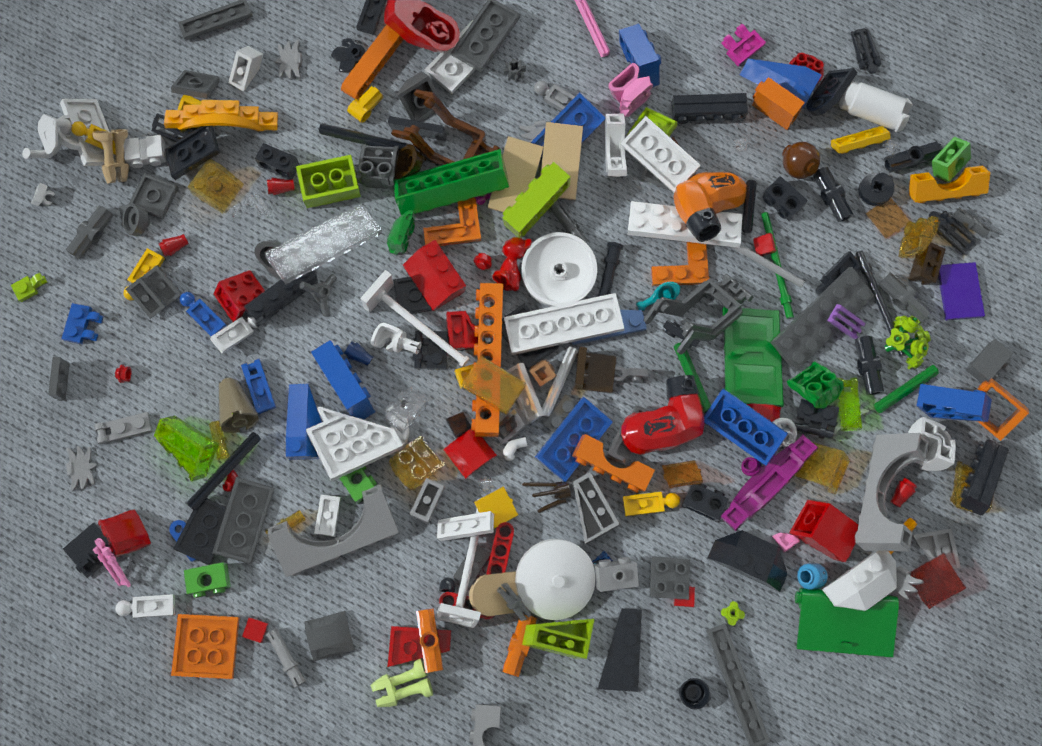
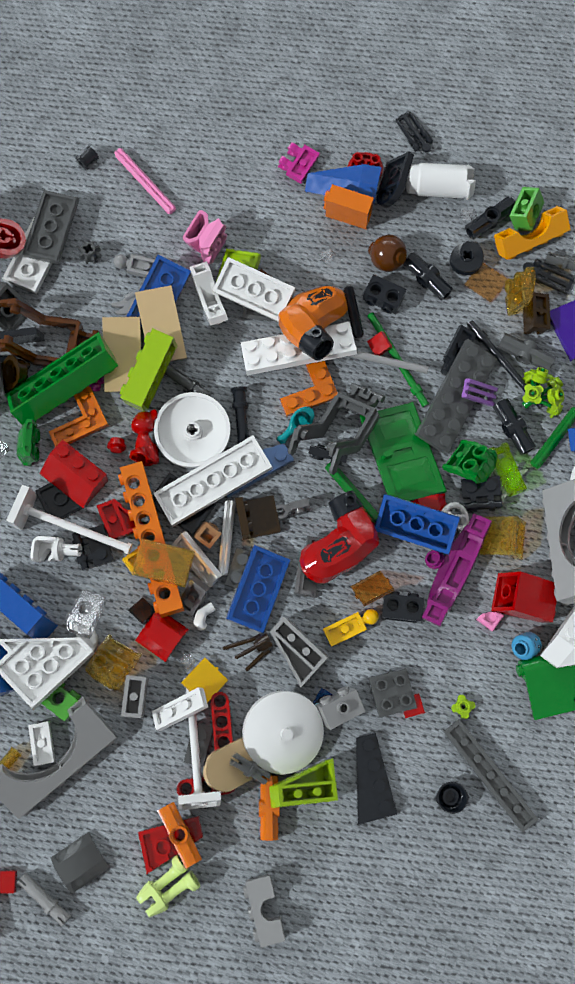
camera: 15 degrees left, 0 degrees up
(358, 353) = (20, 573): dark blue cone -> none
(447, 585) = (180, 773): black hinge -> none
(591, 452) = (277, 597): orange arch -> none
(641, 52) = (204, 197): wedge -> none
(709, 107) = (286, 230): black brick -> none
(750, 558) = (463, 647): black wedge -> none
(860, 139) = (437, 217): yellow plate -> none

